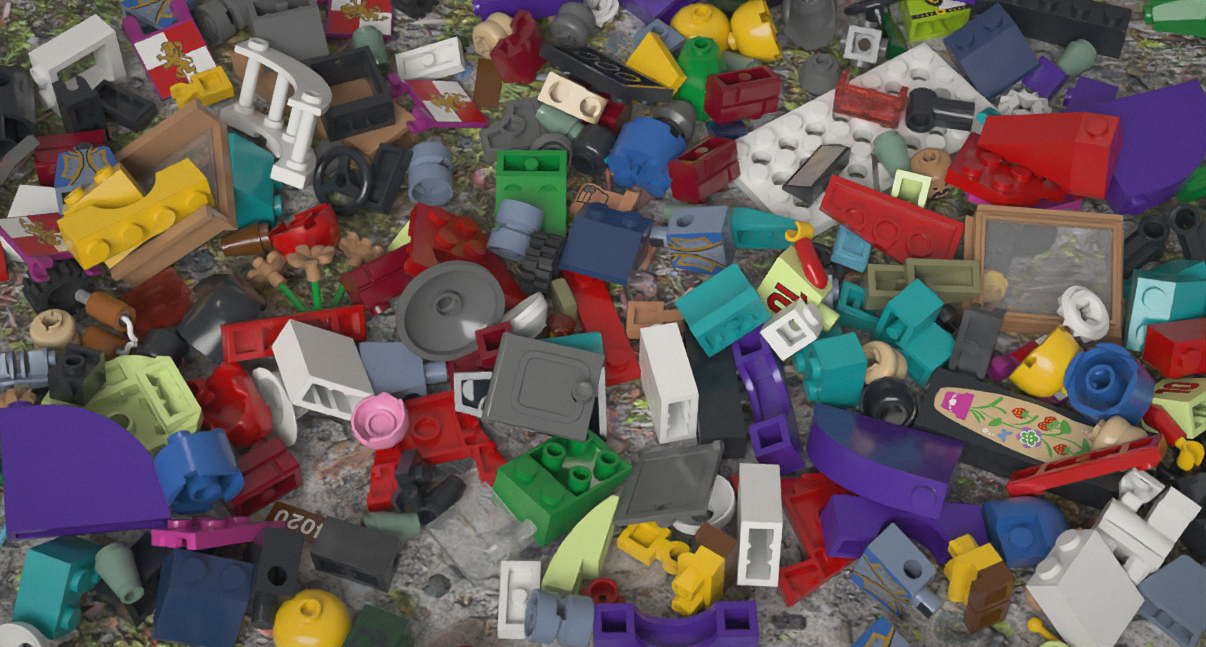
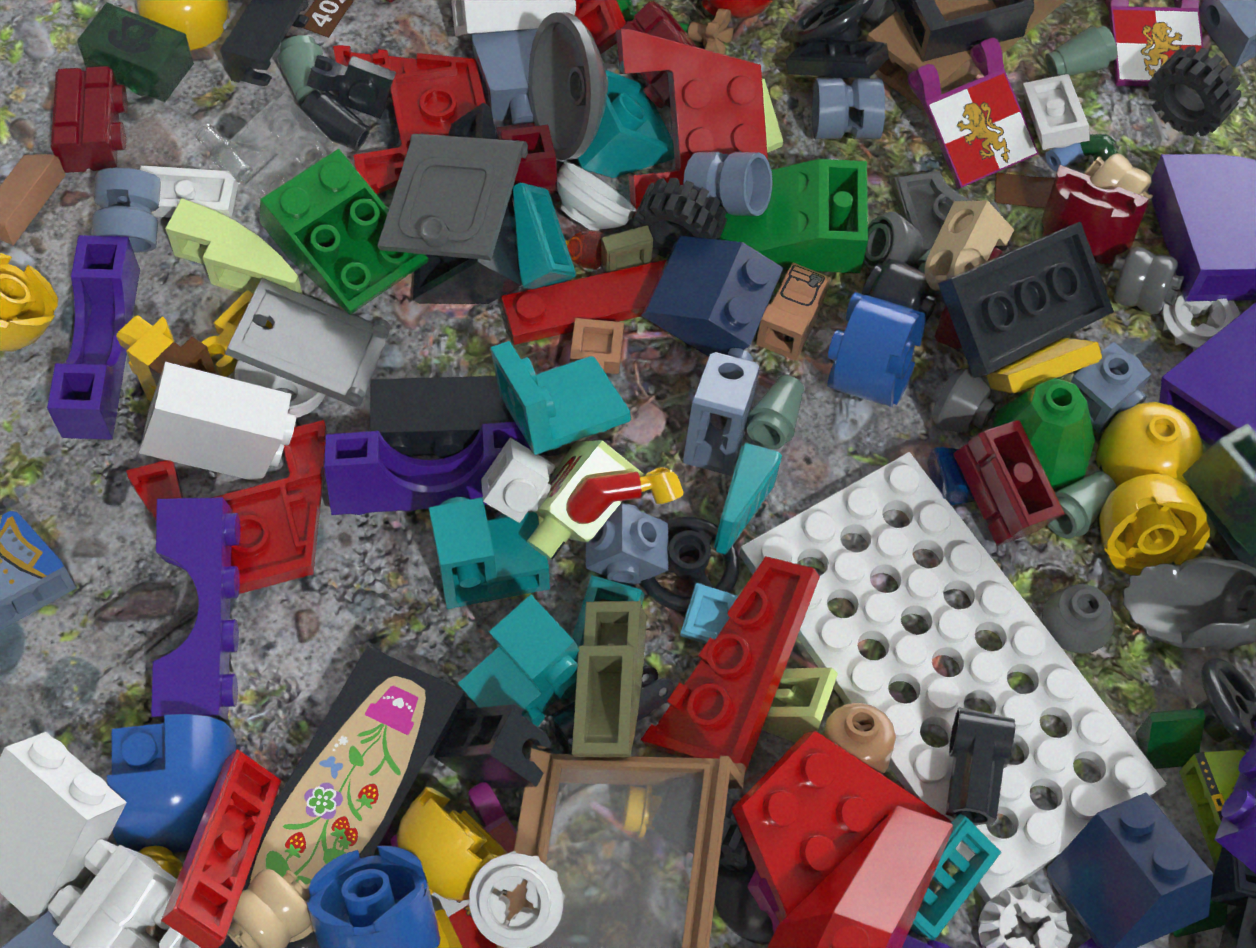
camera: 90 degrees right, 10 degrees up
(380, 421) = (430, 42): bright pink hair -> none
(603, 588) = (174, 268): red plate -> none
(668, 382) = (458, 335): white brick -> none
(704, 170) = (851, 421): dark red brick -> none
(816, 172) = (852, 574): slope -> none
(850, 44) = (1137, 676): brick -> none
(869, 103) = (1006, 661): clear red hinge -> none
(875, 172) = (834, 652): sticker -> none
(883, 361) = (473, 613): tan piece -> none
(884, 460) = (294, 596): dark purple brick -> none
(889, 401) = (414, 626): black hair -> none
(892, 152) = (882, 682): sand green cone -> none
(897, 574) = (129, 598): sand blue torso -> none
(979, 581) = (96, 694): hips -> none

